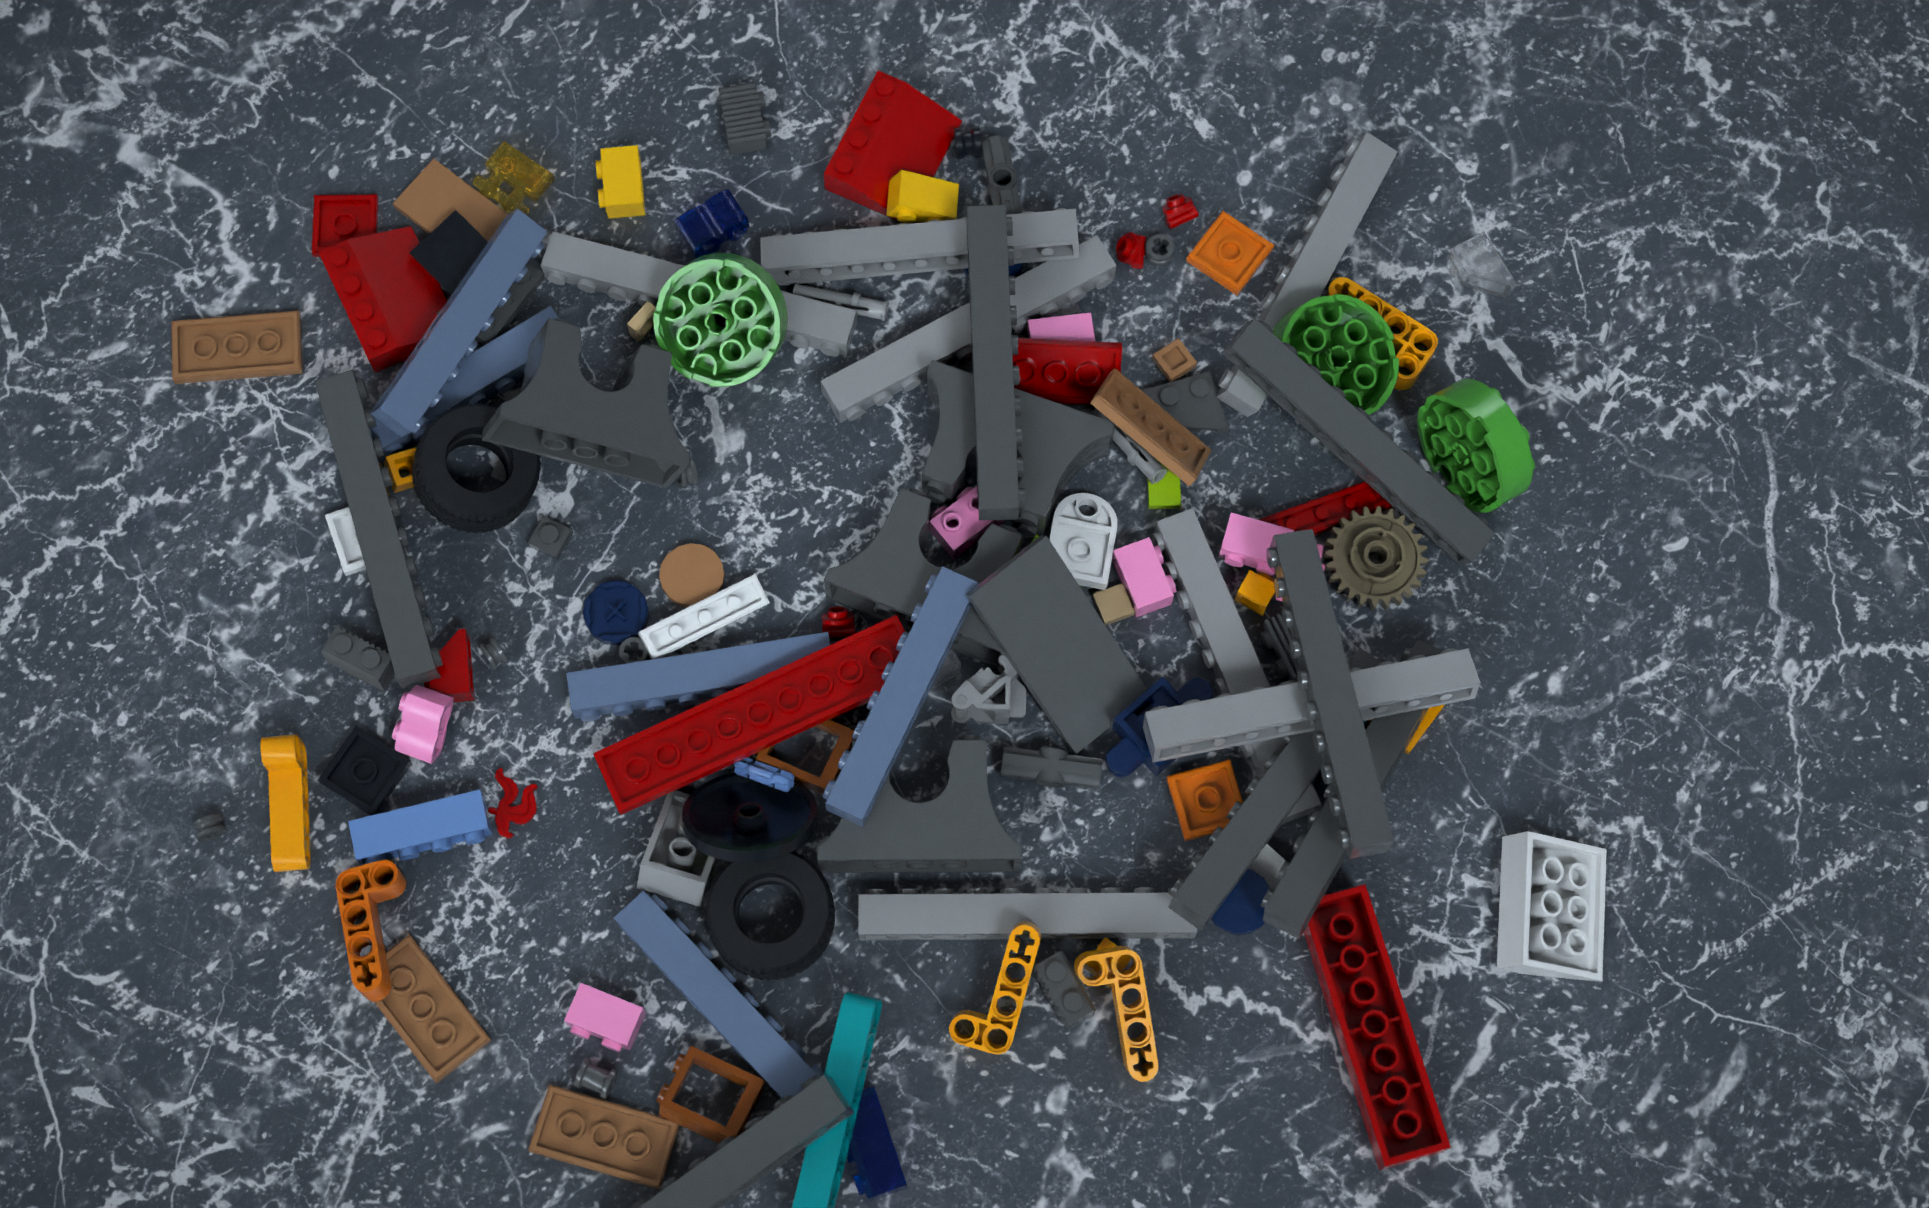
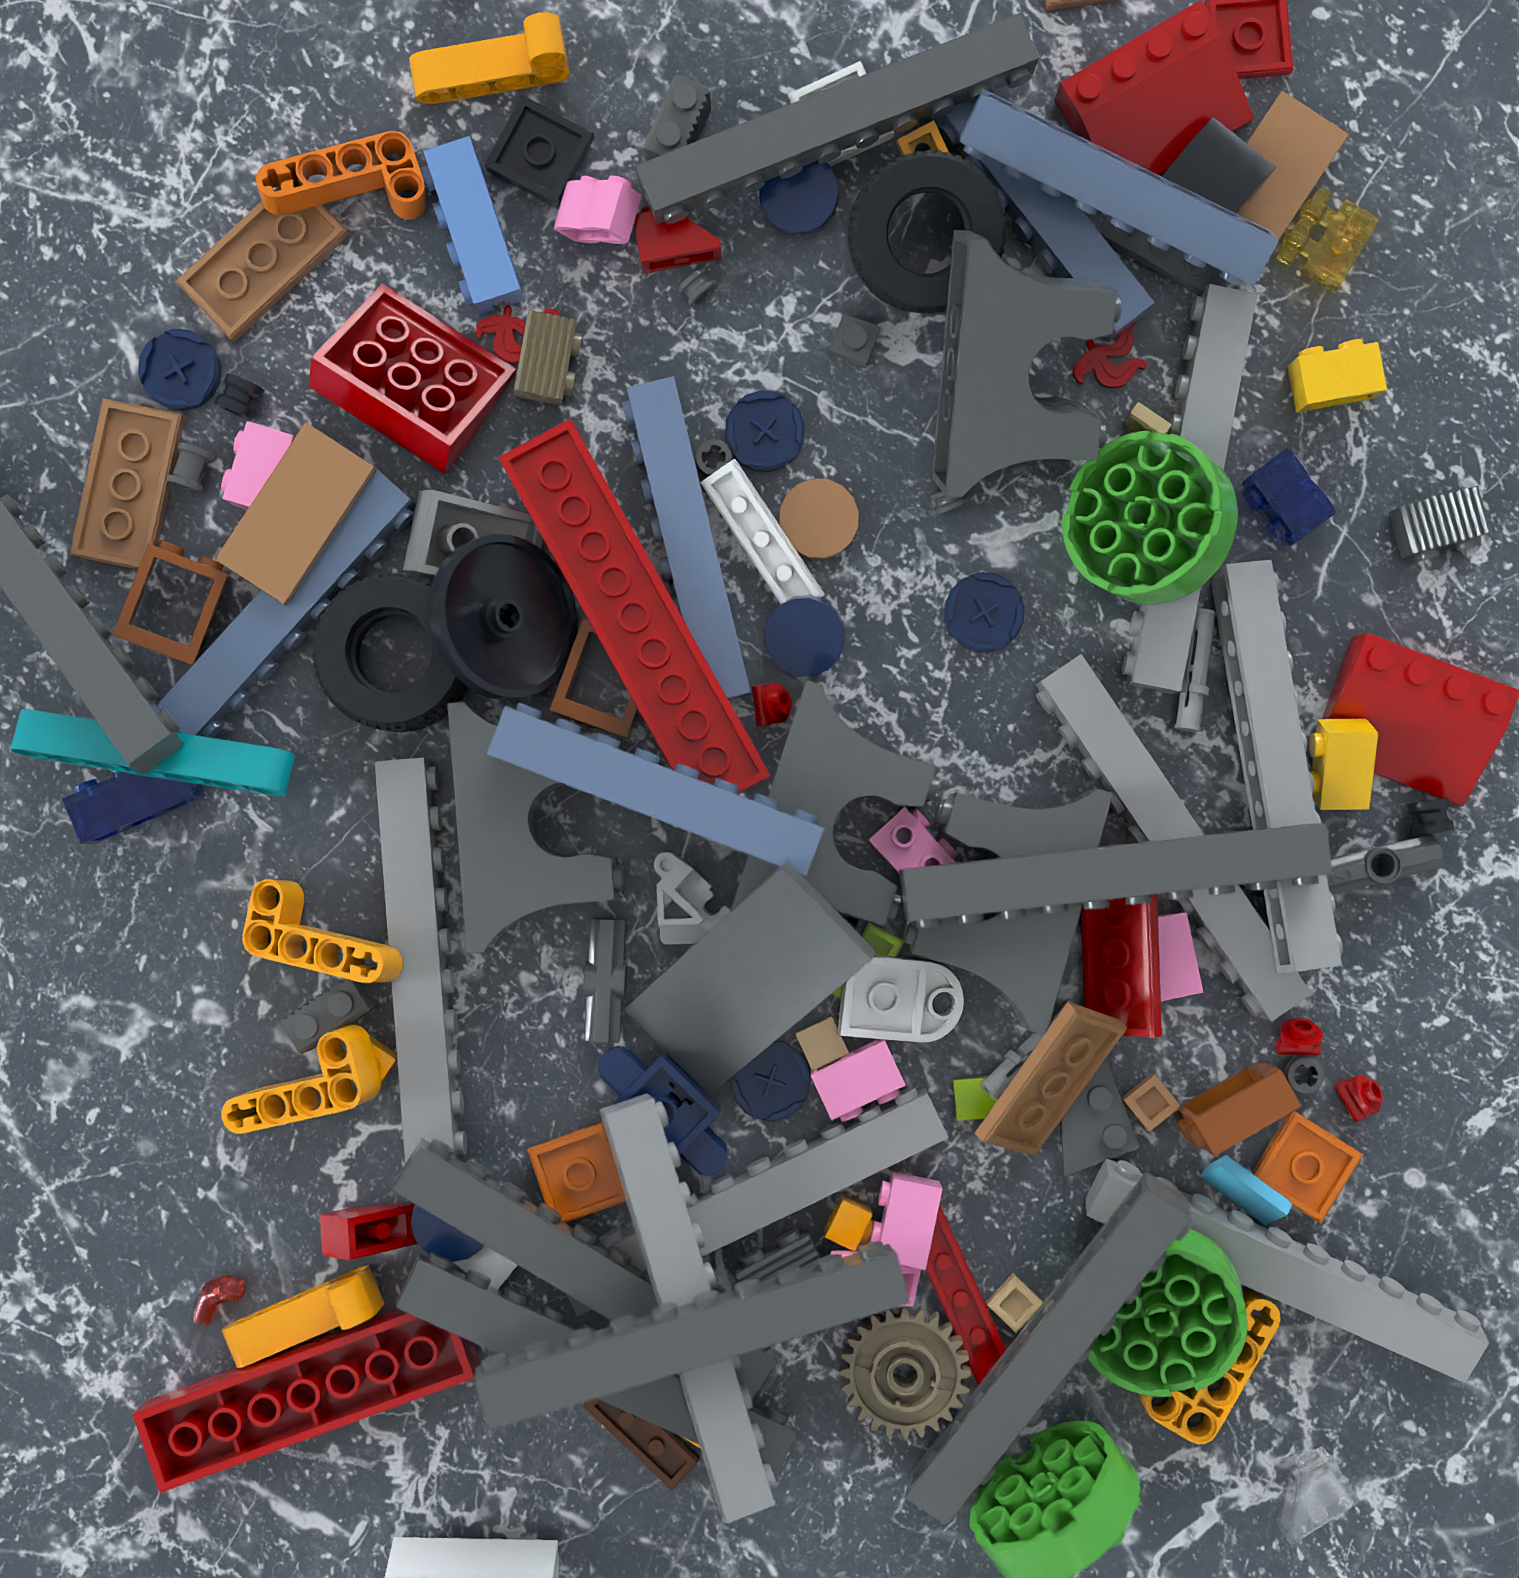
camera: 85 degrees right, 15 degrees up
(435, 566) = (801, 201): none -> dark blue tile
(510, 1085) = (179, 370): none -> dark blue tile
(538, 777) = (546, 358): none -> dark tan brick
(540, 1032) = (239, 396): none -> black wheel
(541, 888) = (410, 377): none -> red slope
(597, 351) = (1105, 371): none -> red piece
(647, 981) = (296, 513): none -> medium nougat tile
(765, 774) = (564, 634): medium blue axle -> none
(779, 456) = (984, 612): none -> dark blue tile
(786, 590) = (804, 636): none -> dark blue tile
(1145, 644) = (772, 1083): none -> dark blue tile
(1181, 295) = (1237, 1108): none -> dark orange window
(1244, 972) = (366, 1230): none -> red slope
(1246, 296) = (1246, 1190): none -> medium azure tile
(1291, 1105) = (214, 1293): none -> clear red arm
(1312, 1028) = (332, 1304): none -> light orange beam
(1326, 474) = (1014, 1302): none -> tan tile
(1421, 767) = (654, 1446): none -> reddish brown tile

